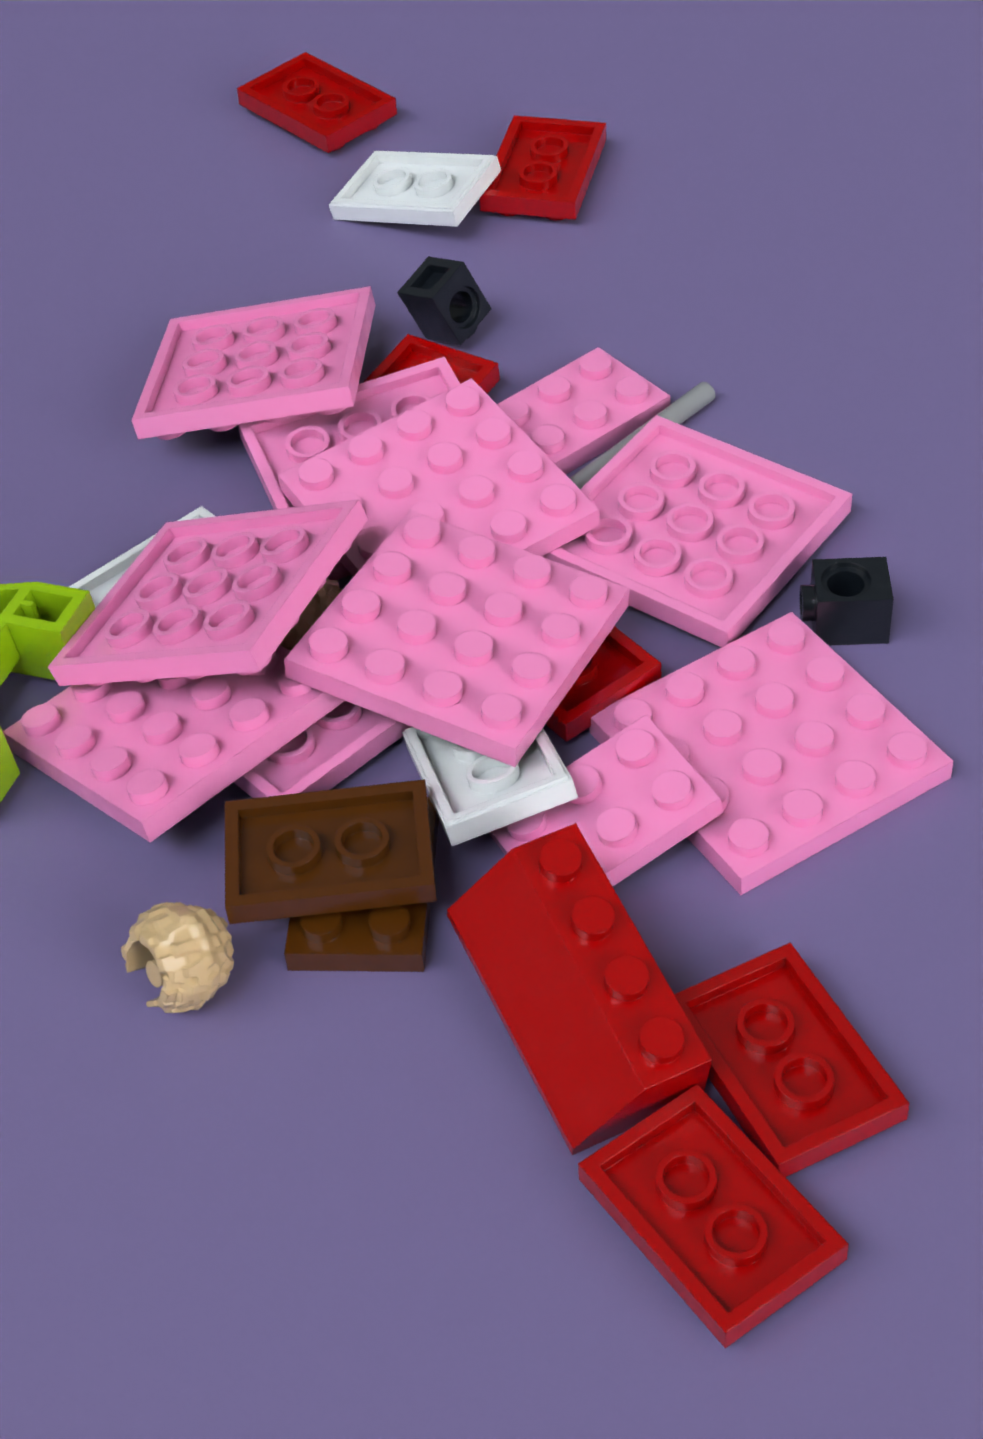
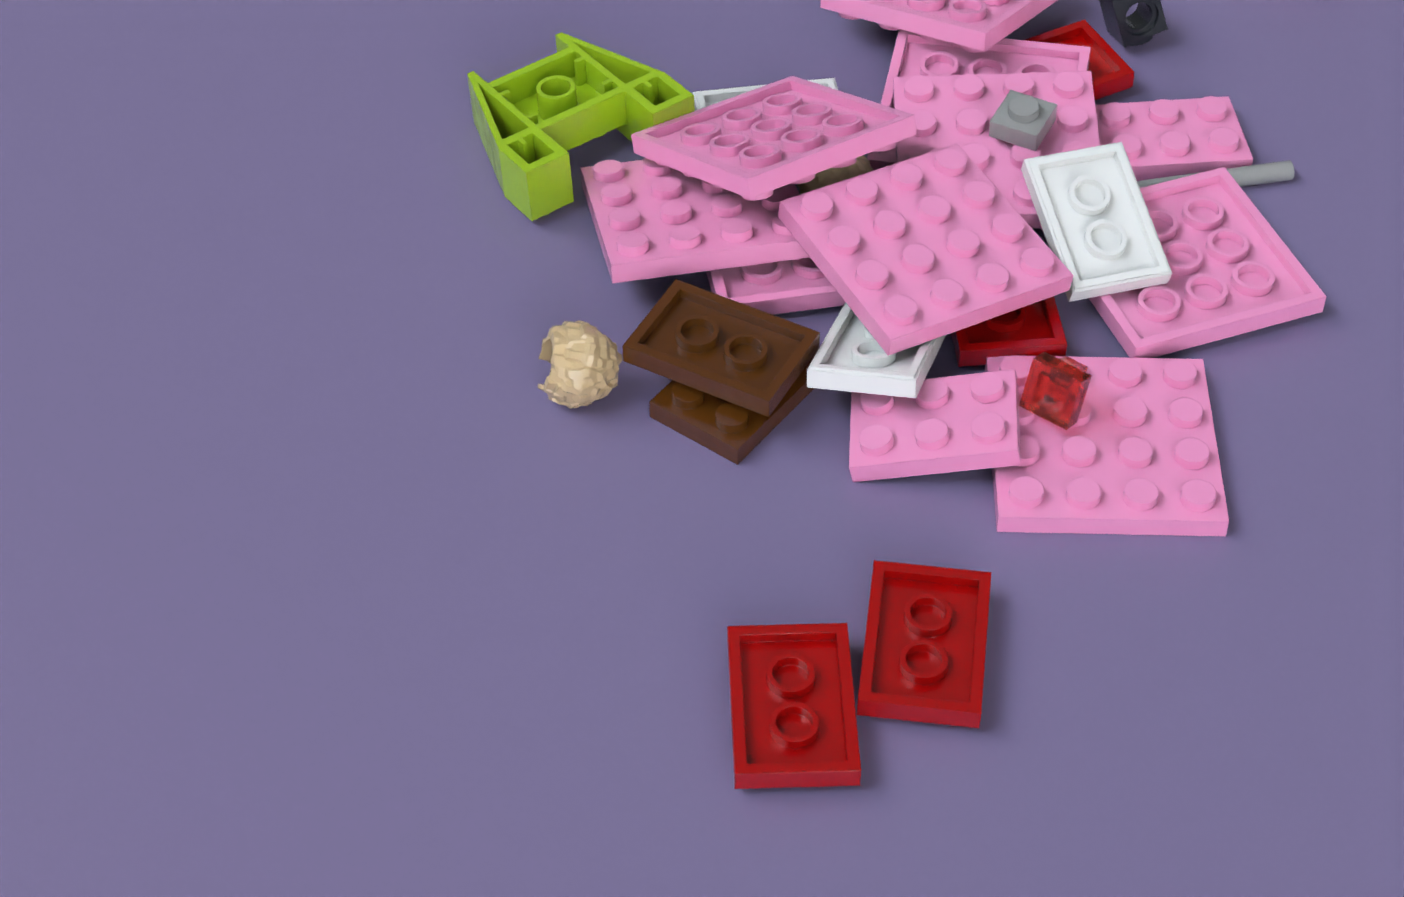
camera: 30 degrees right, 0 degrees up
(452, 456) = (1022, 120): none -> light grey plate
(577, 989) = (814, 517): red slope -> none
(599, 520) = (1096, 220): none -> white tile
(706, 714) = (1056, 389): none -> clear red tile
(849, 600) = (1251, 372): black brick -> none

